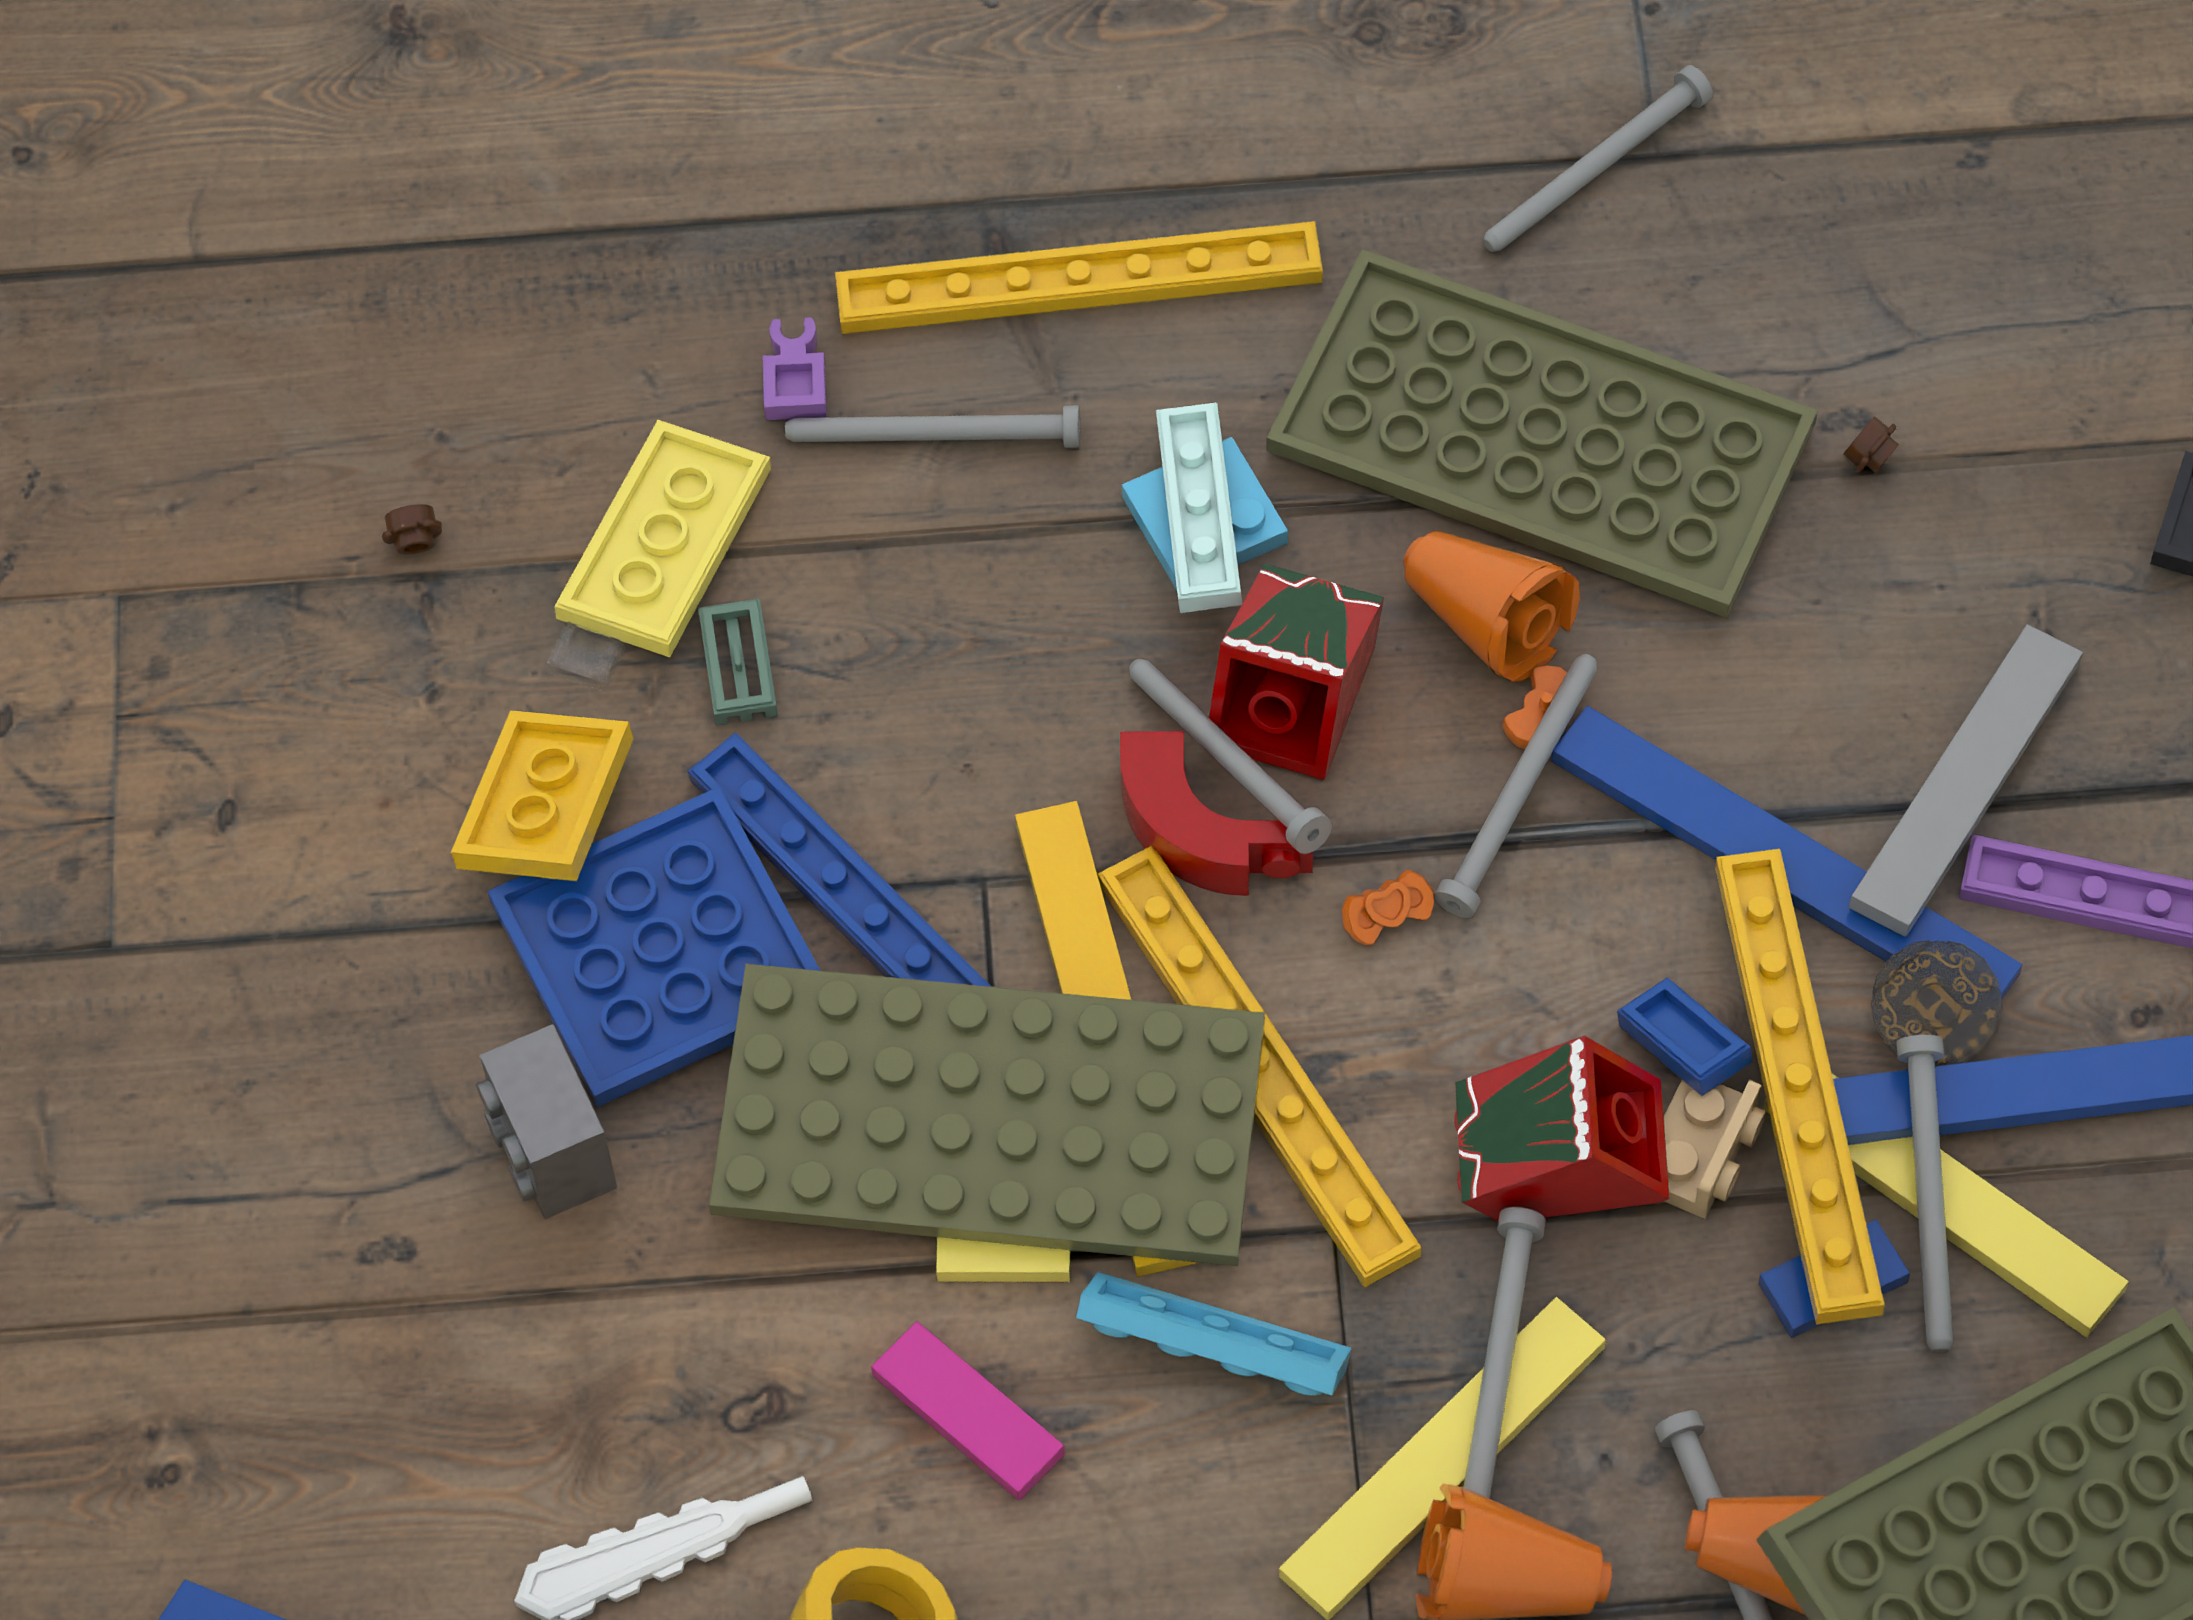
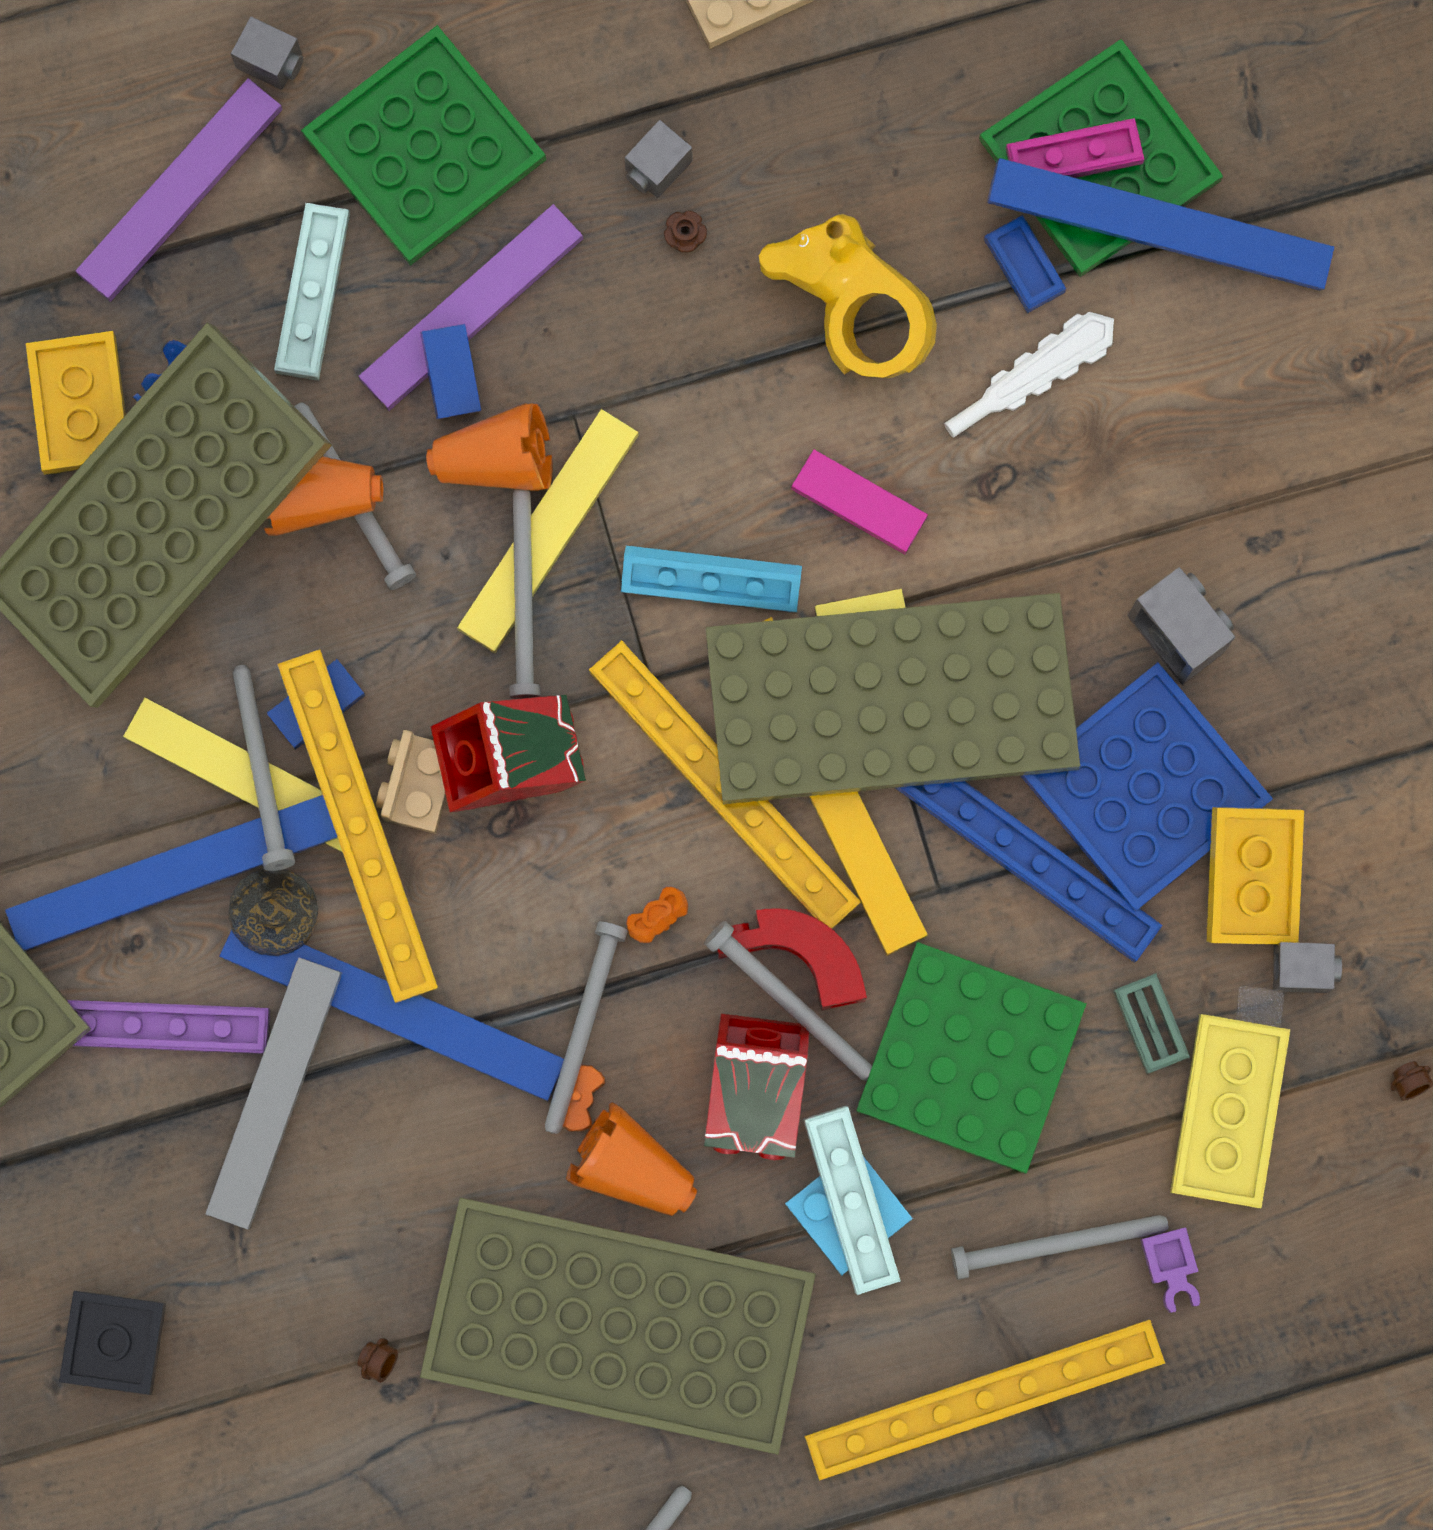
camera: 165 degrees right, 20 degrees up
(508, 676) = (1306, 967): none -> flat silver brick
(993, 664) = (971, 1058): none -> green plate
(1684, 1036) = (439, 853): blue tile -> none

